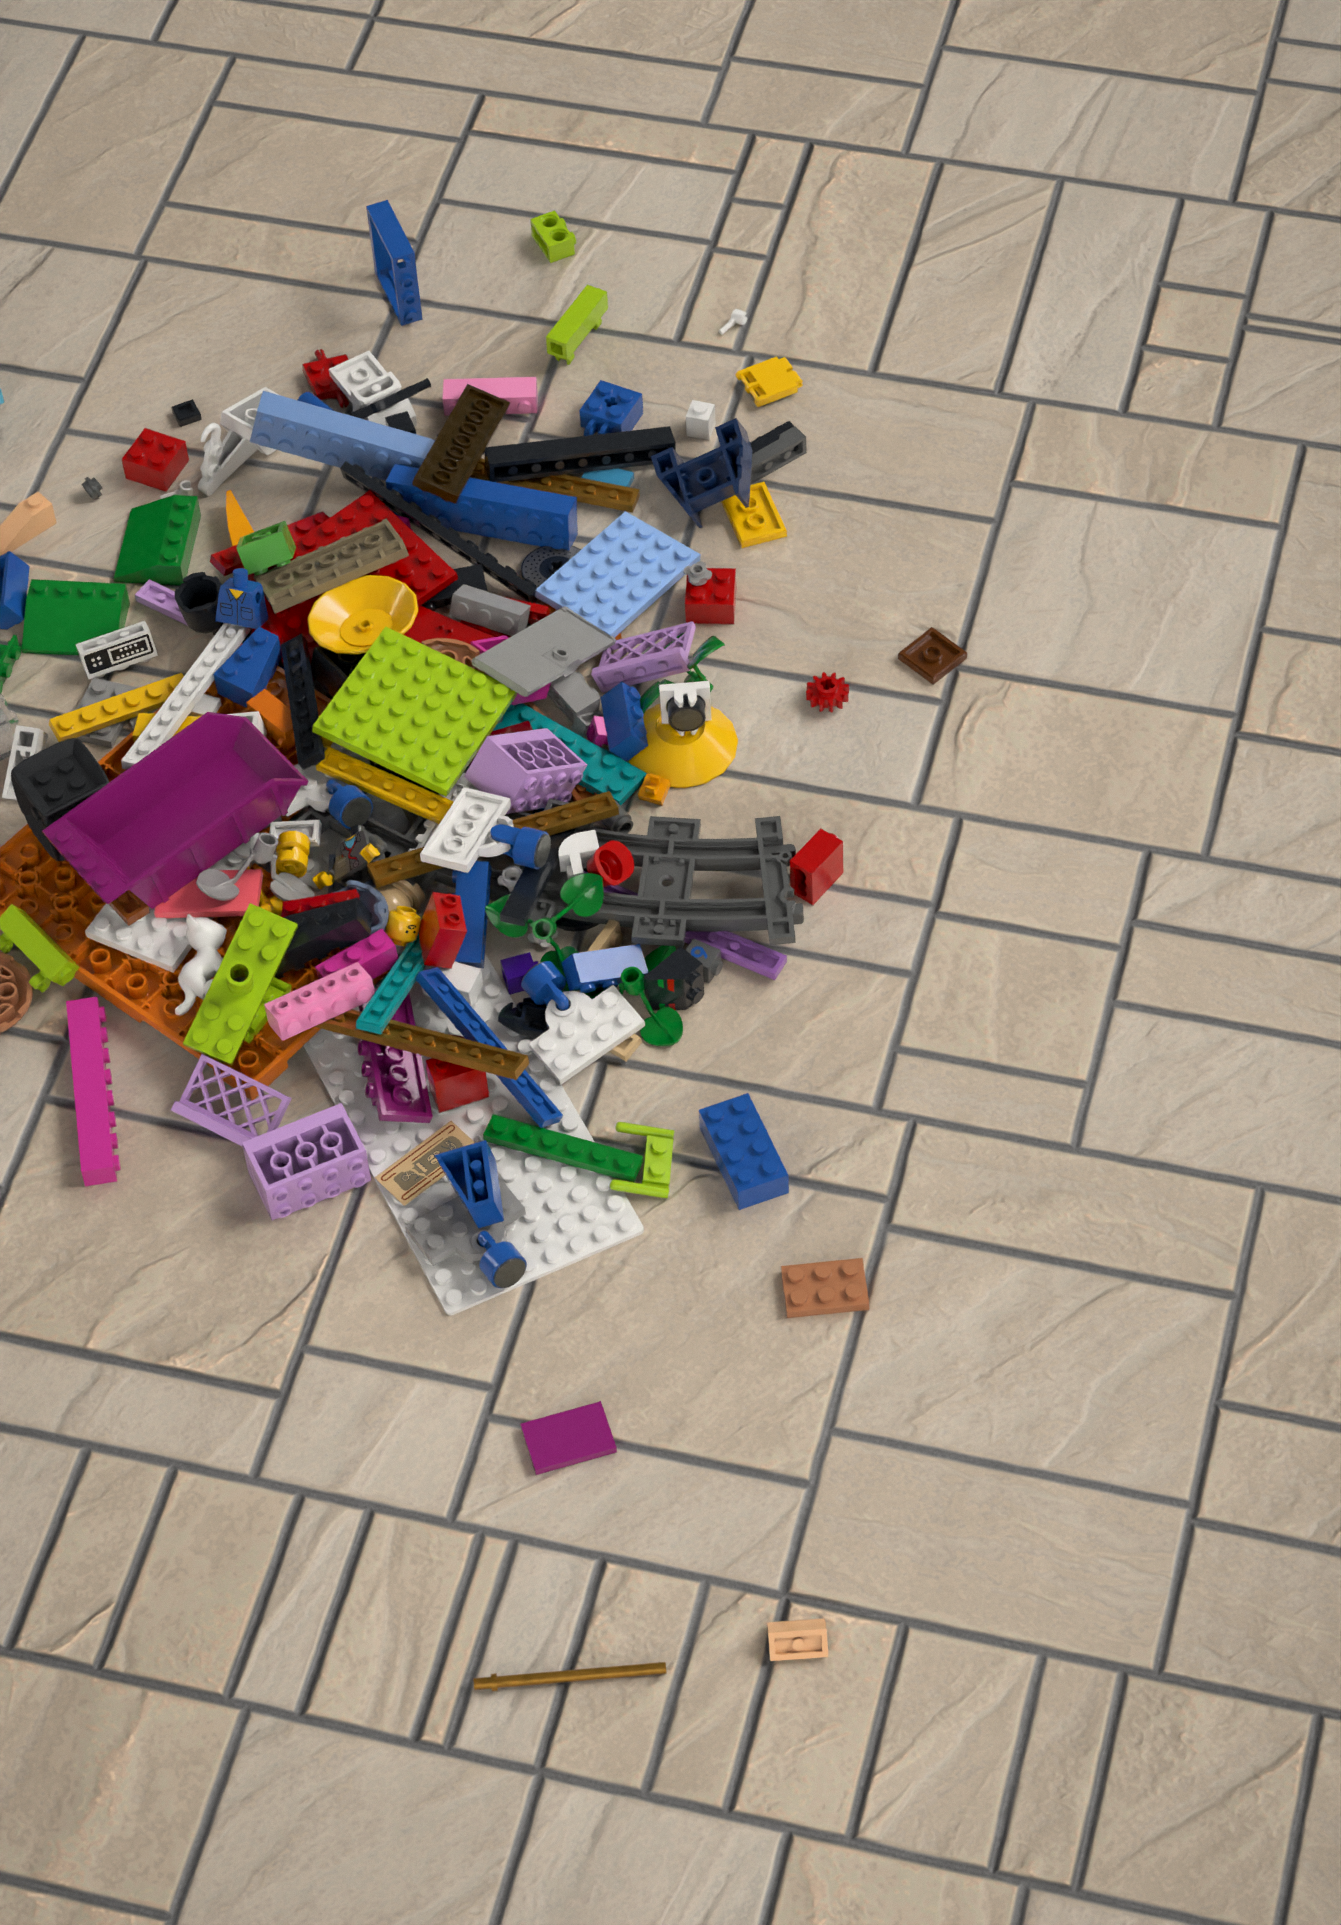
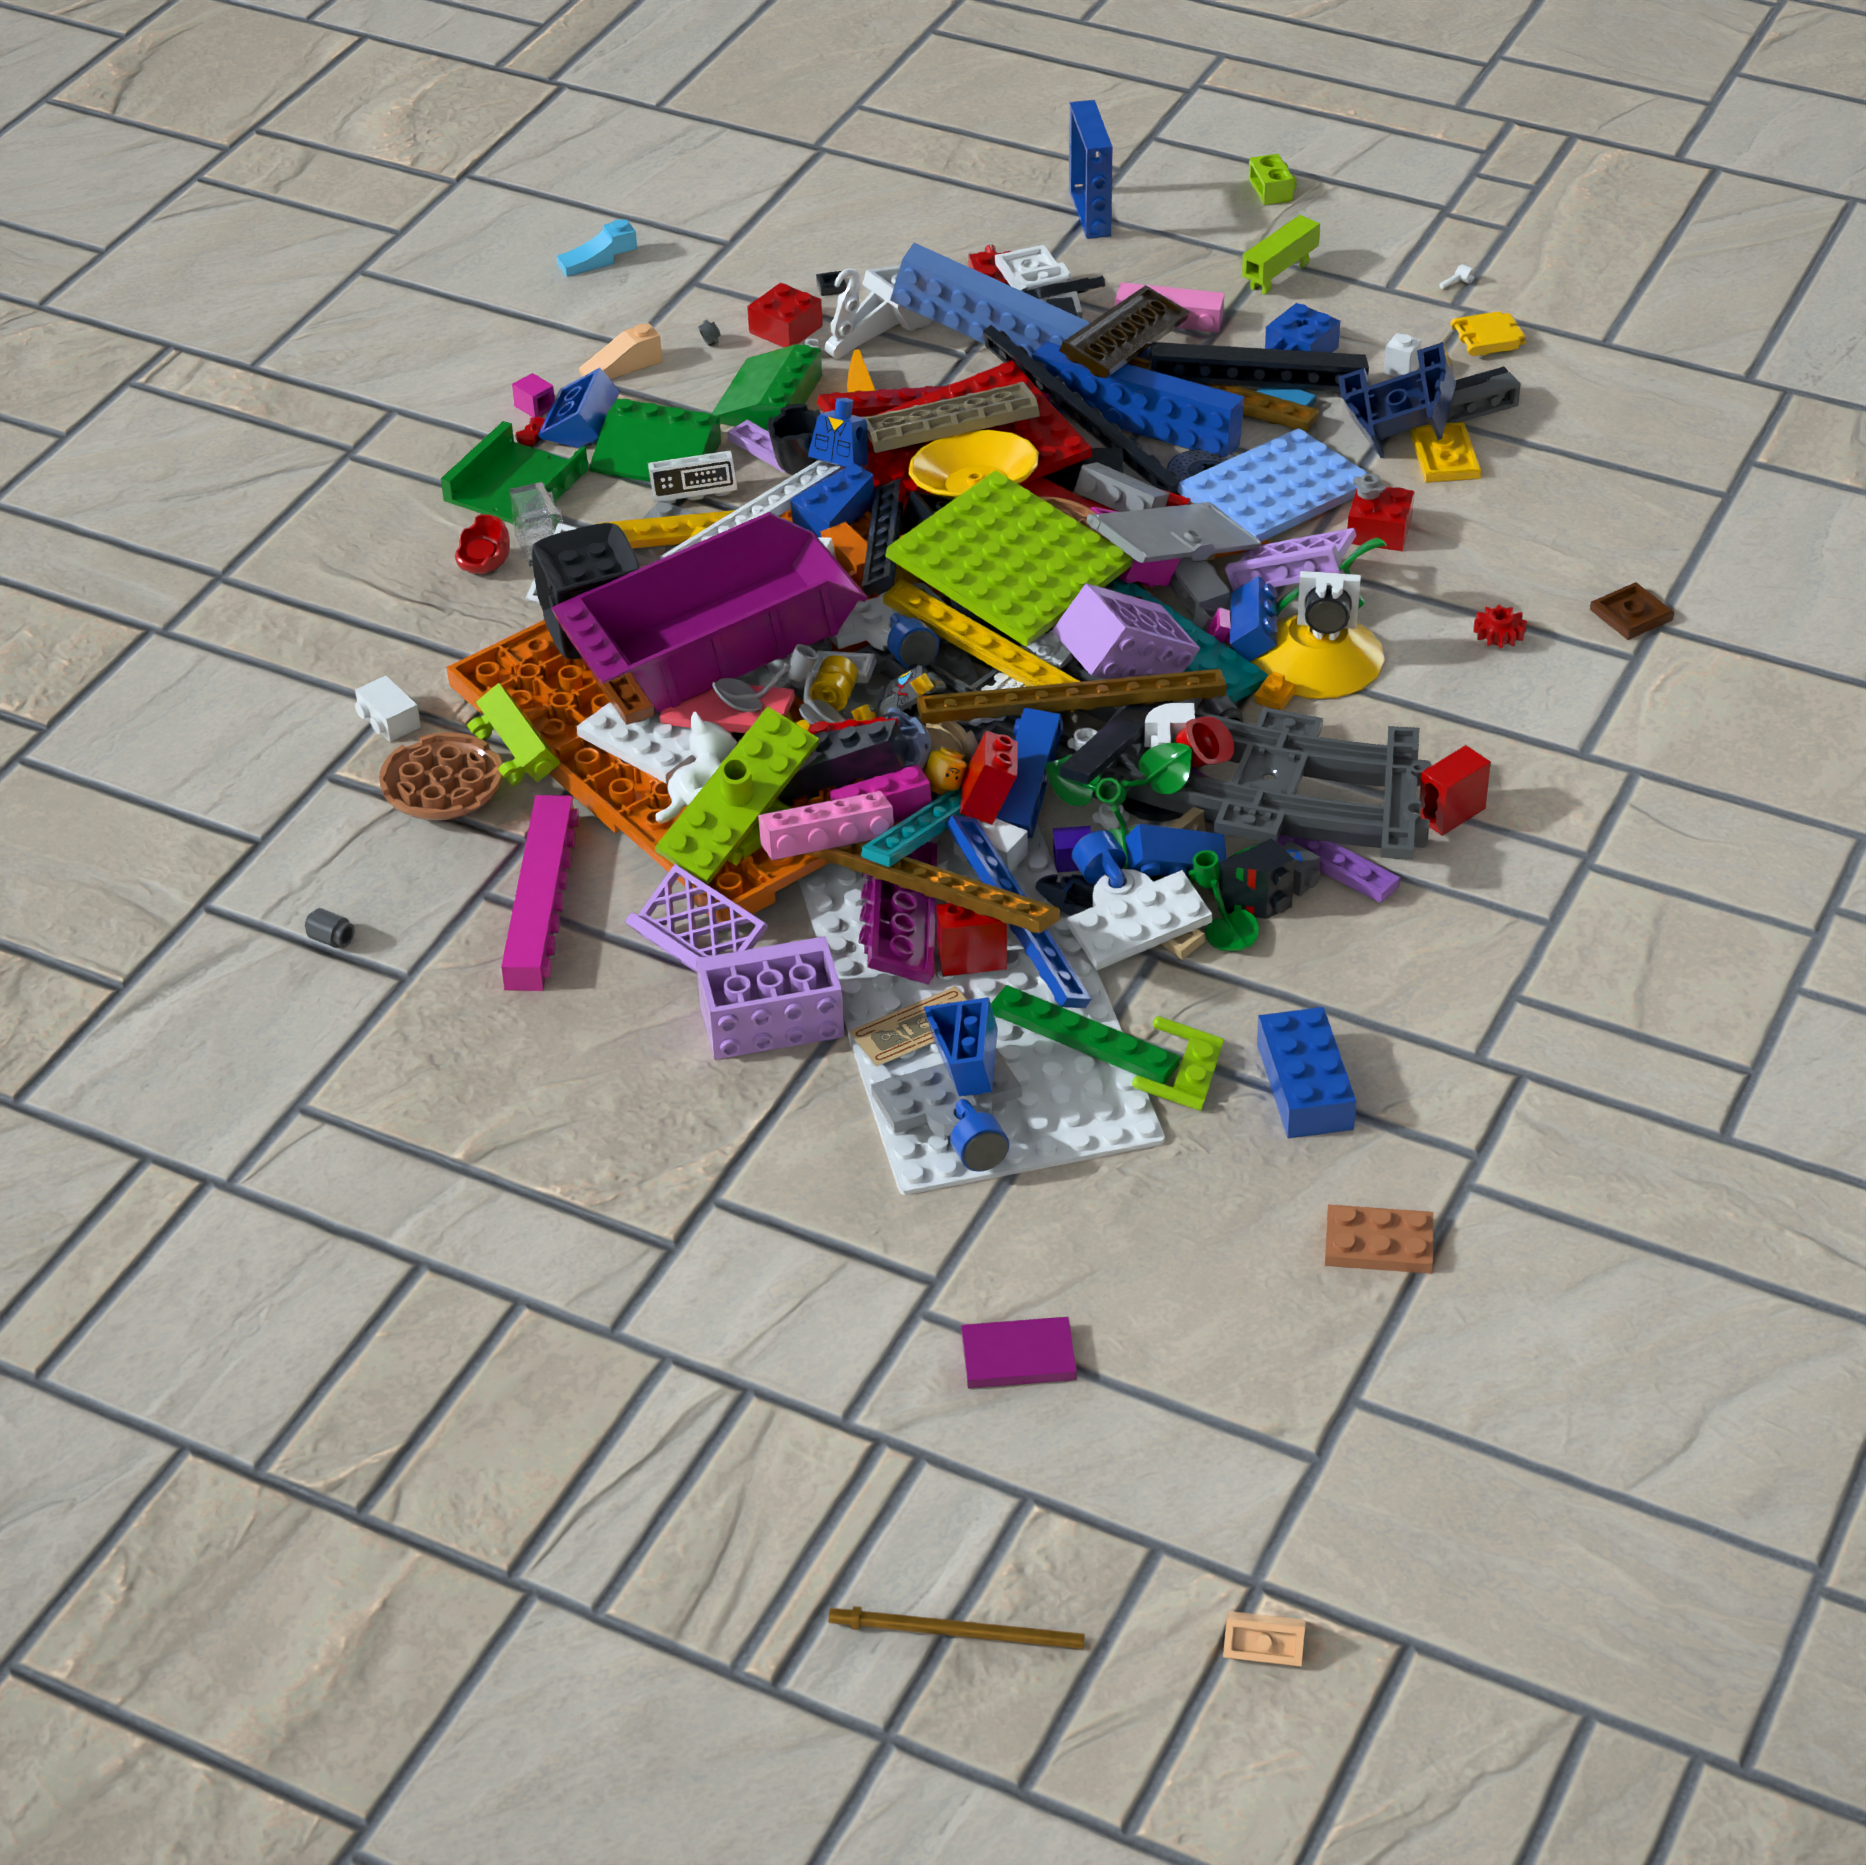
camera: 10 degrees right, 10 degrees down
(266, 548) = (881, 390): bright green brick -> none
(479, 828) = (1062, 678): white plate -> none

